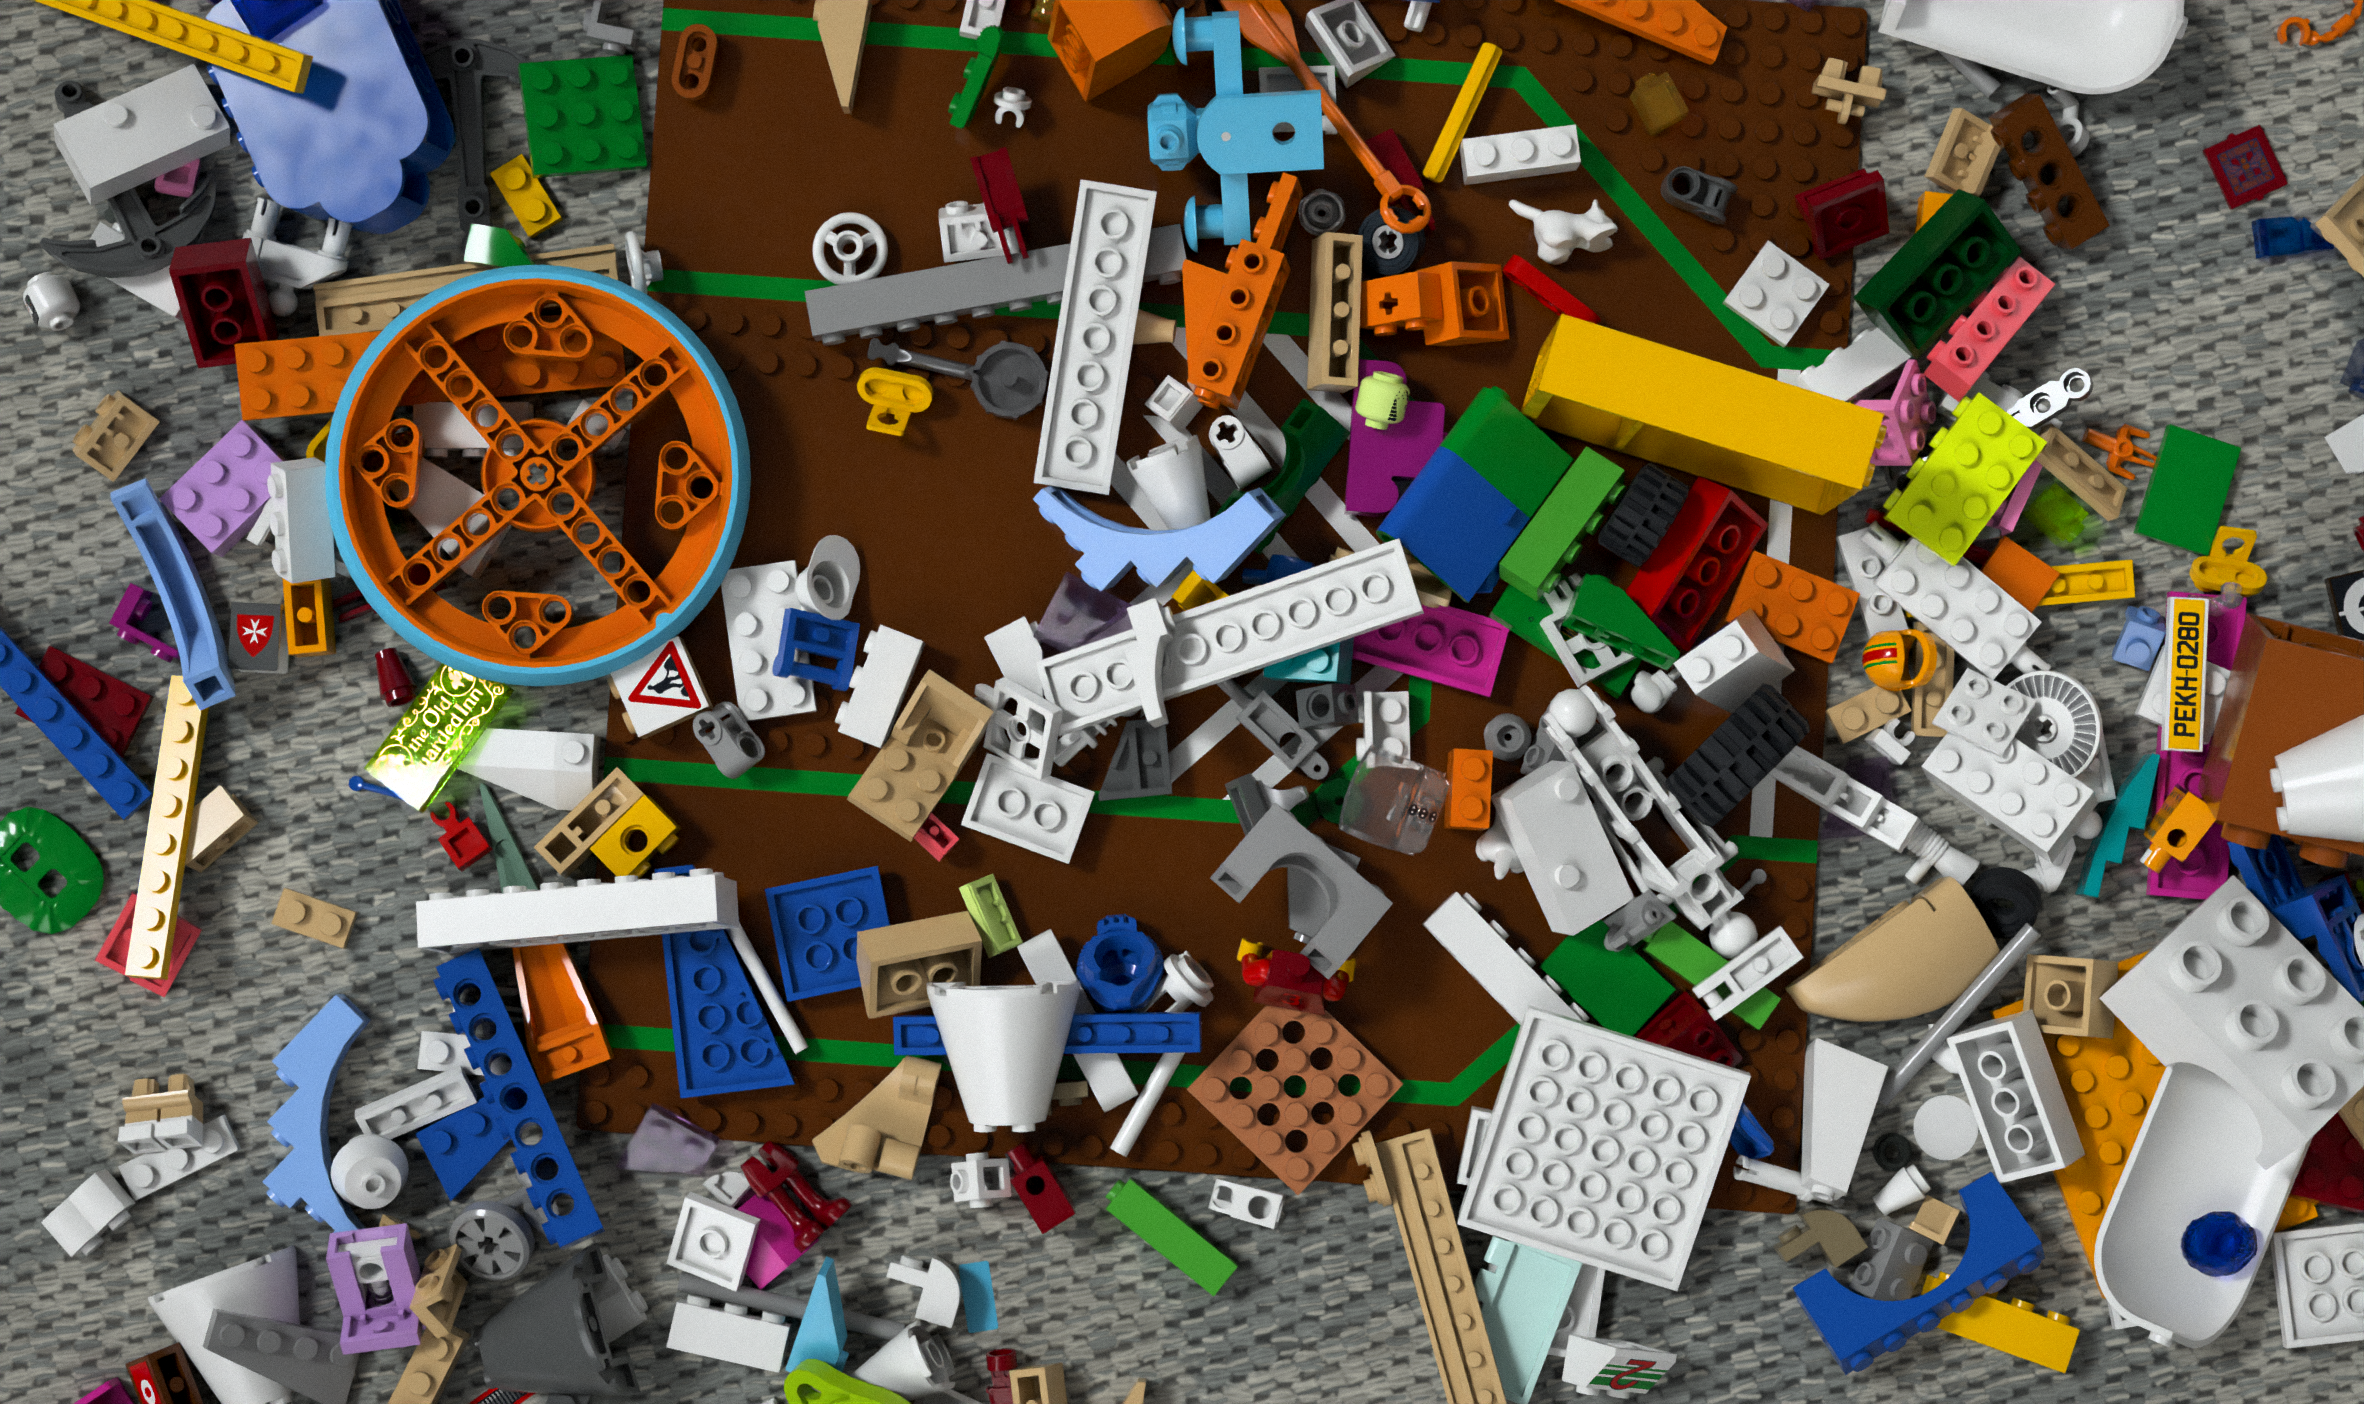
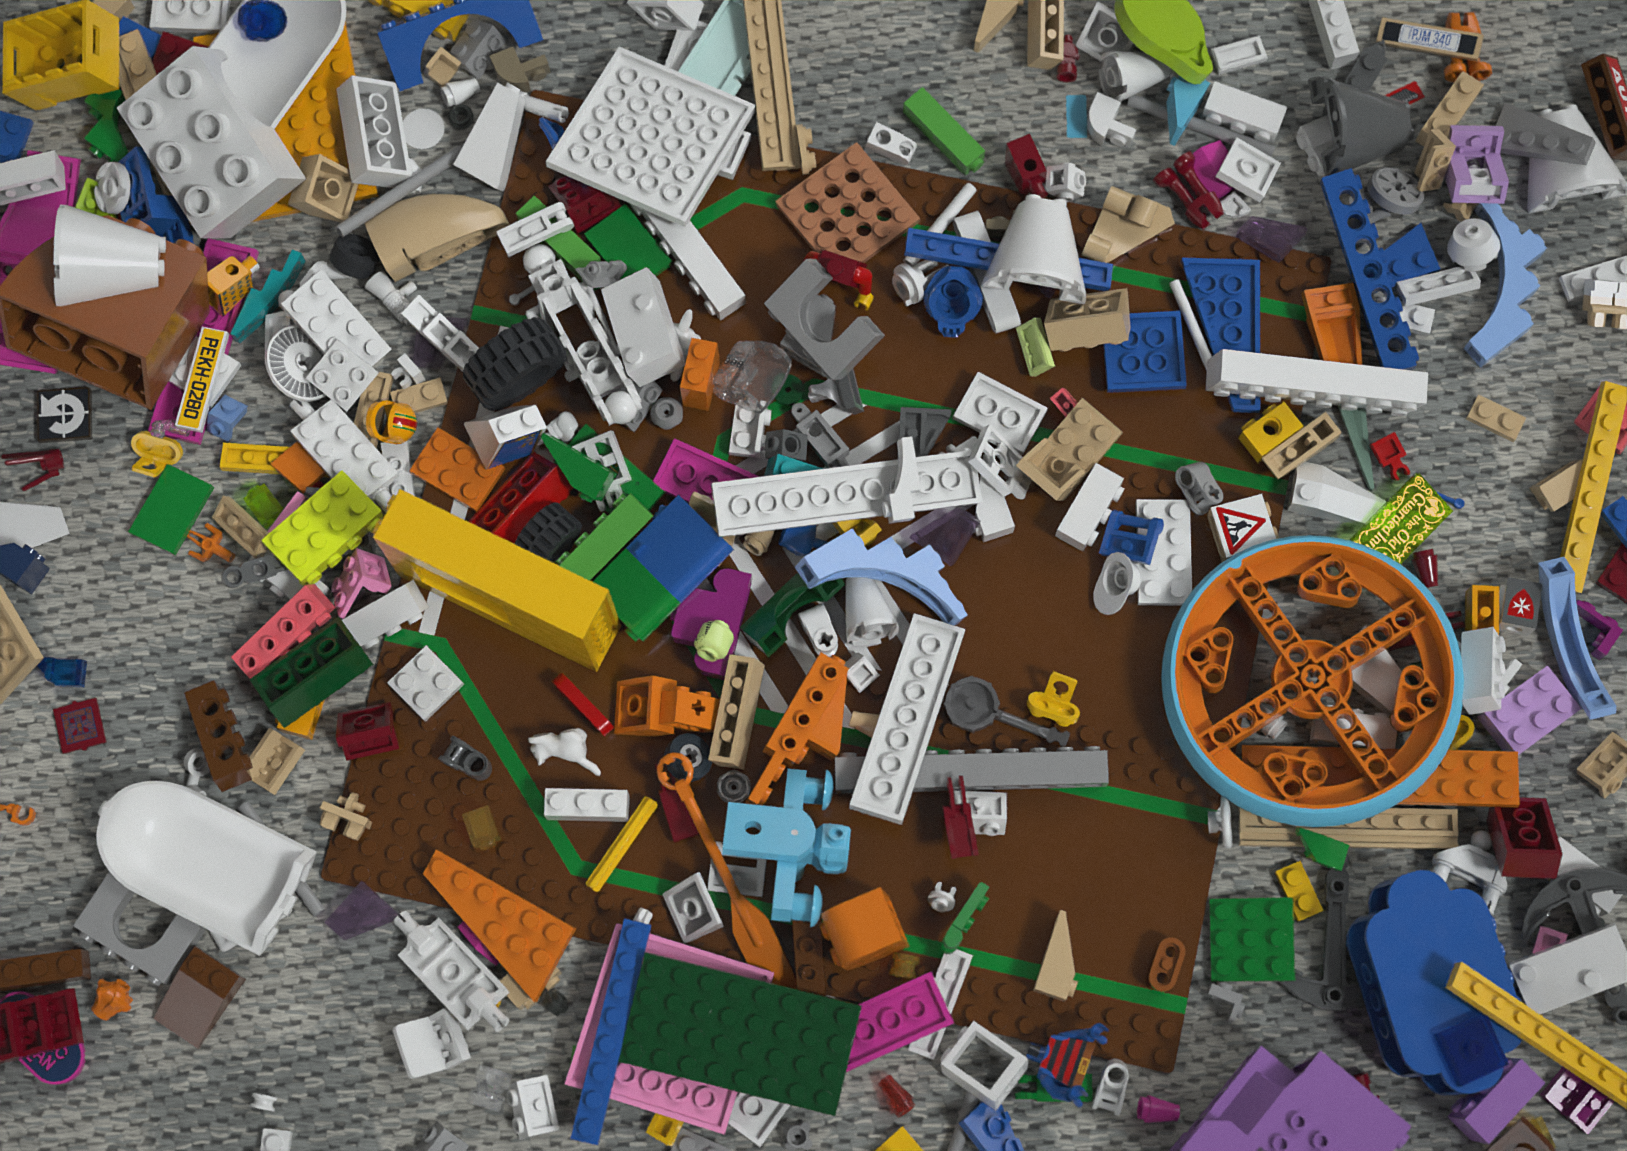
camera: 170 degrees left, 10 degrees down
(838, 241) = (1074, 793): white piece -> none

